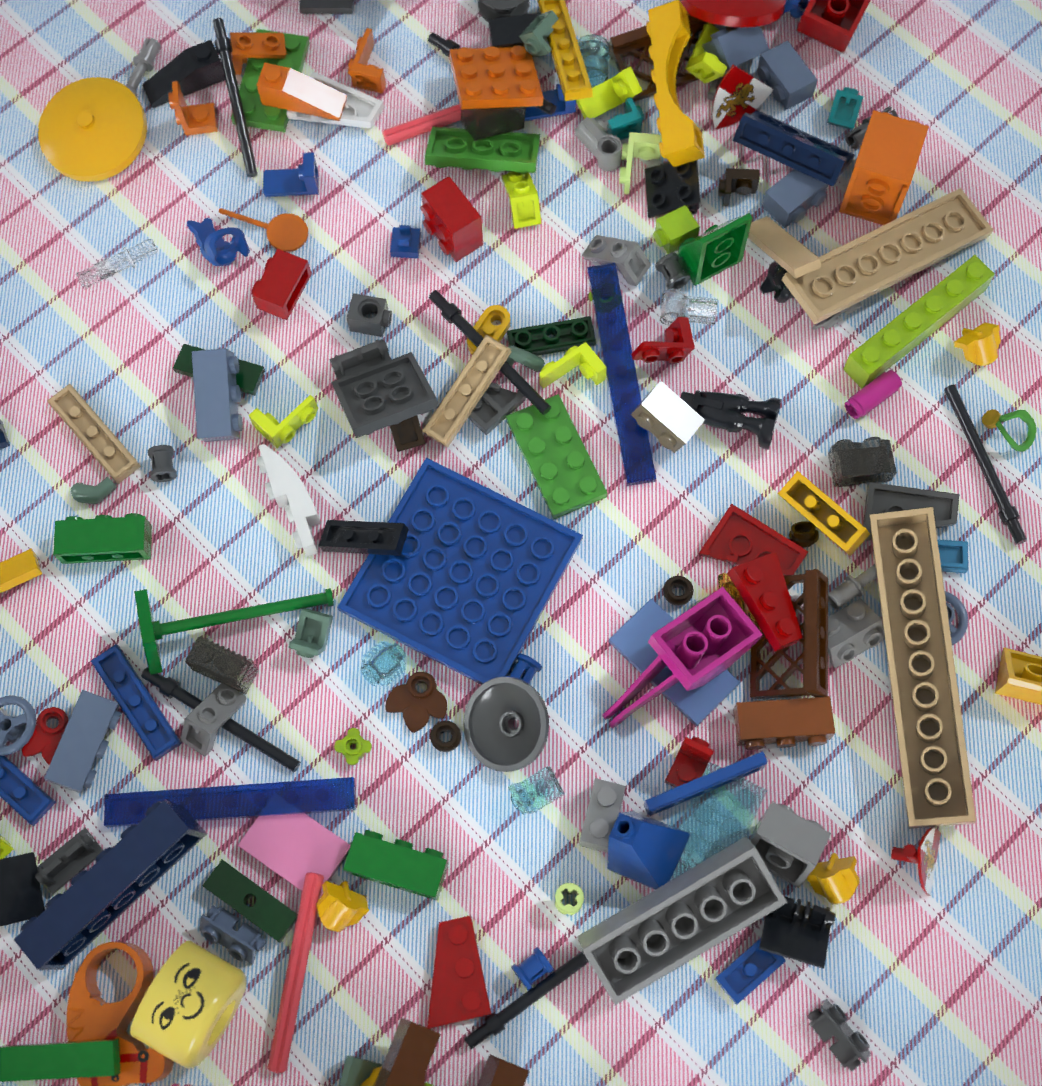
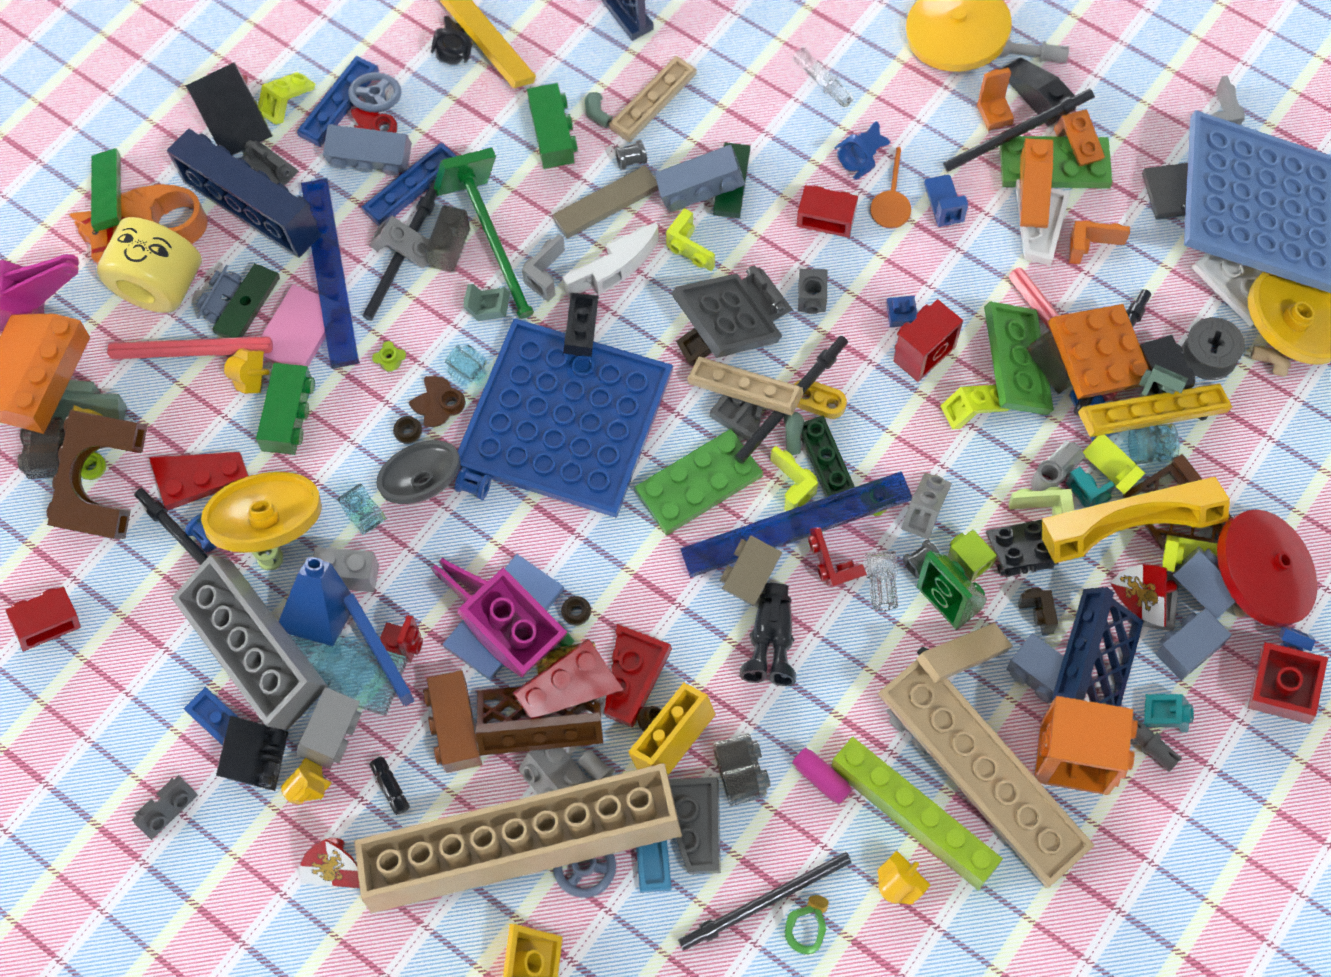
camera: 80 degrees right, 5 degrees down
(211, 498) = (606, 201): none -> dark tan tile
(296, 575) = (534, 268): none -> light grey bracket
(528, 896) = (261, 512): none -> yellow dish
(840, 795) = (389, 785): none -> black axle

